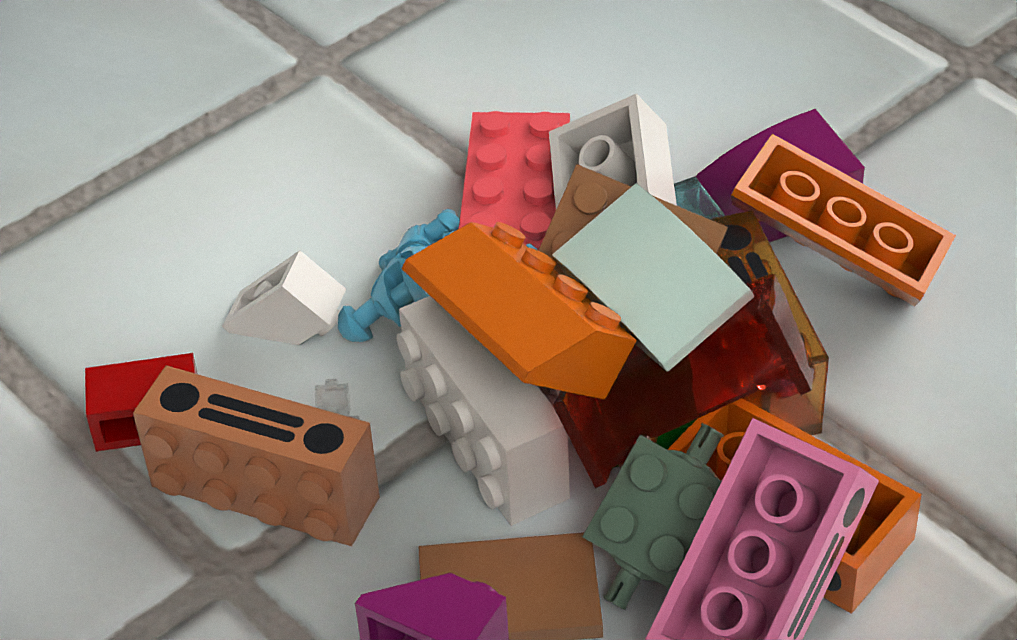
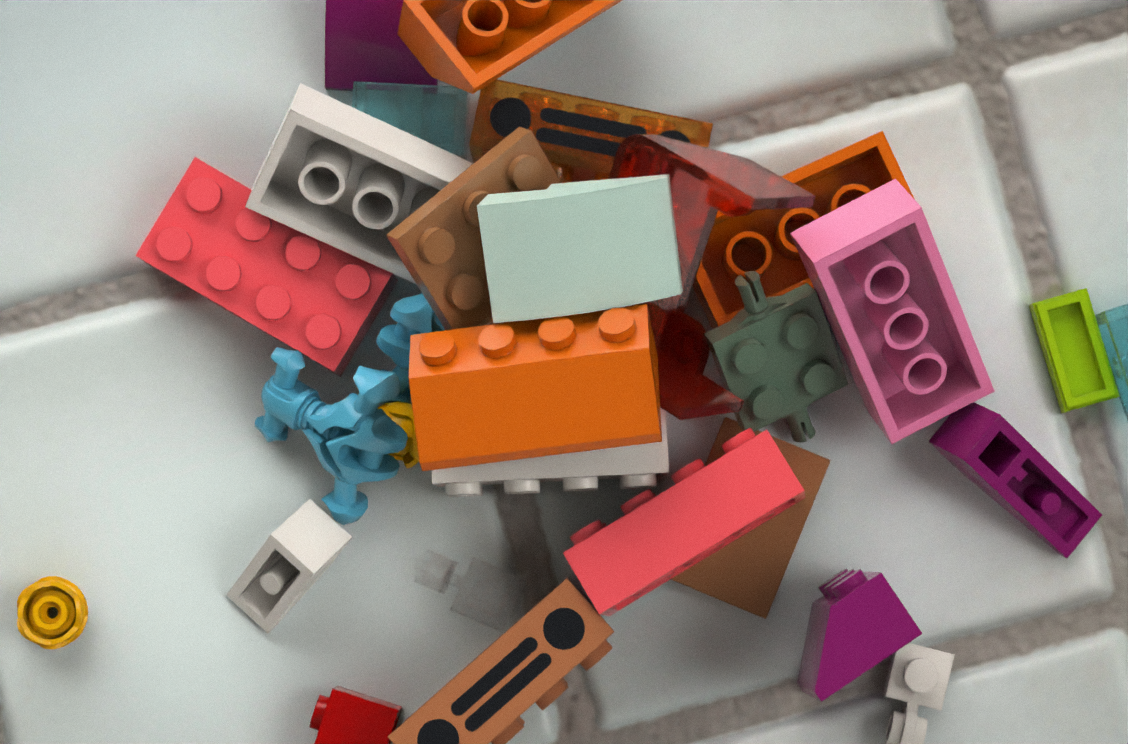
camera: 65 degrees left, 40 degrees up
(171, 197) = (33, 614): none -> yellow plate
(473, 510) = (684, 523): none -> coral brick

